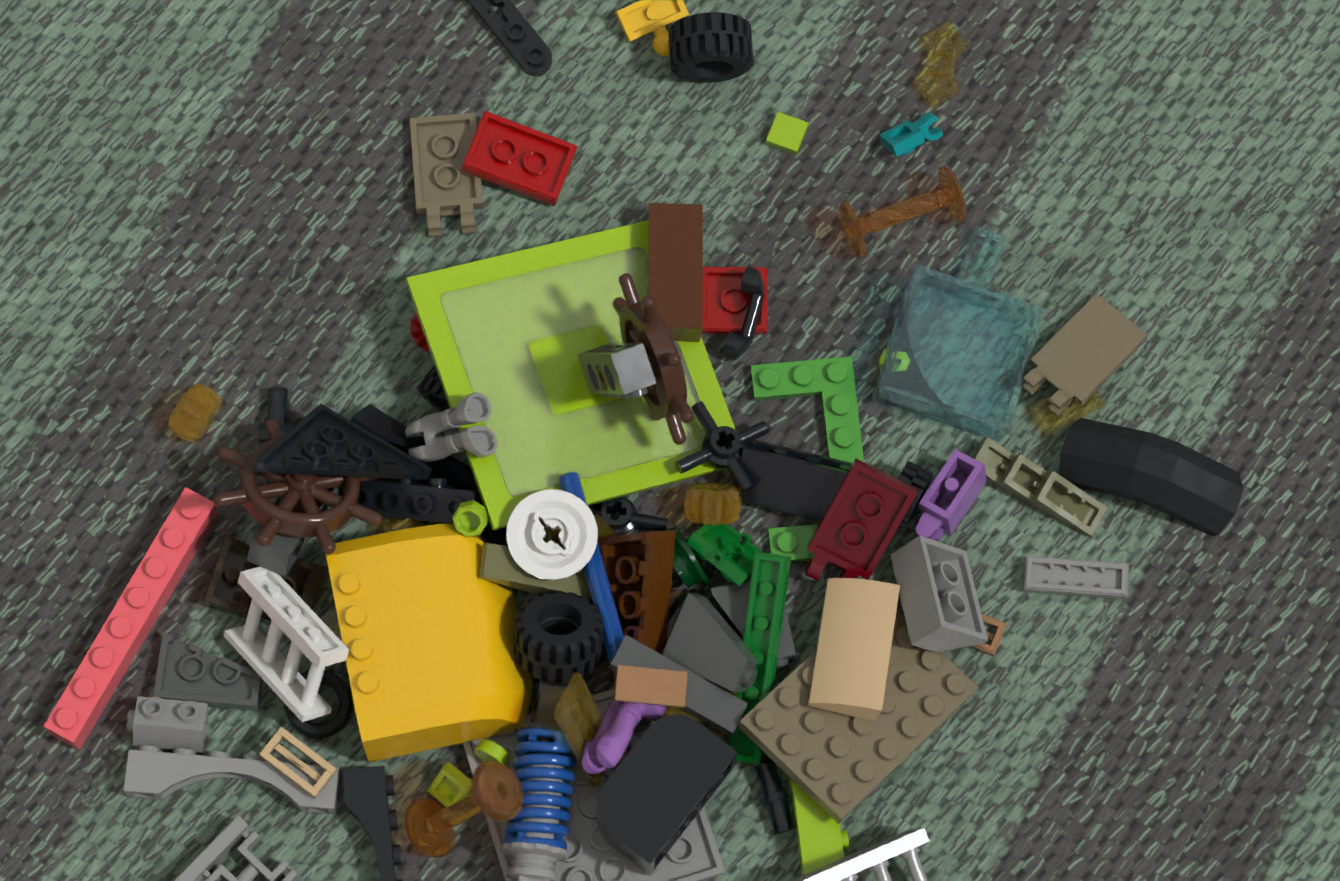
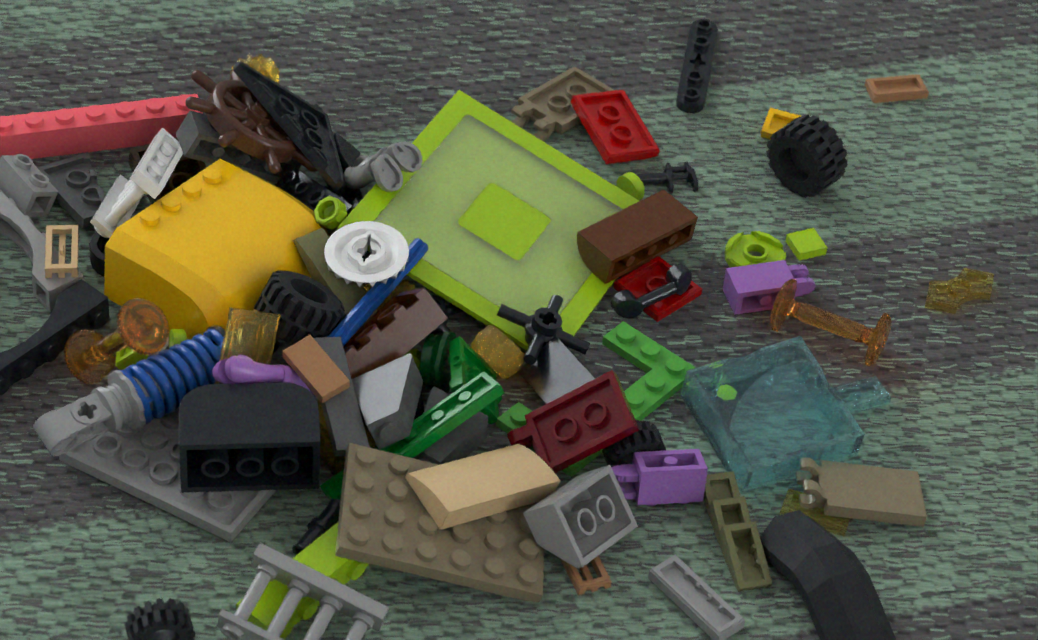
camera: 45 degrees right, 30 degrees down
(605, 215) = (631, 184): none -> lime tile
(611, 173) = (667, 177): none -> black piece
(643, 363) = (534, 214): reddish brown brick -> none
(758, 203) = (739, 245): none -> lime tile
(811, 218) = (757, 285): none -> medium lavender hinge
(907, 135) = (883, 300): teal plate -> none

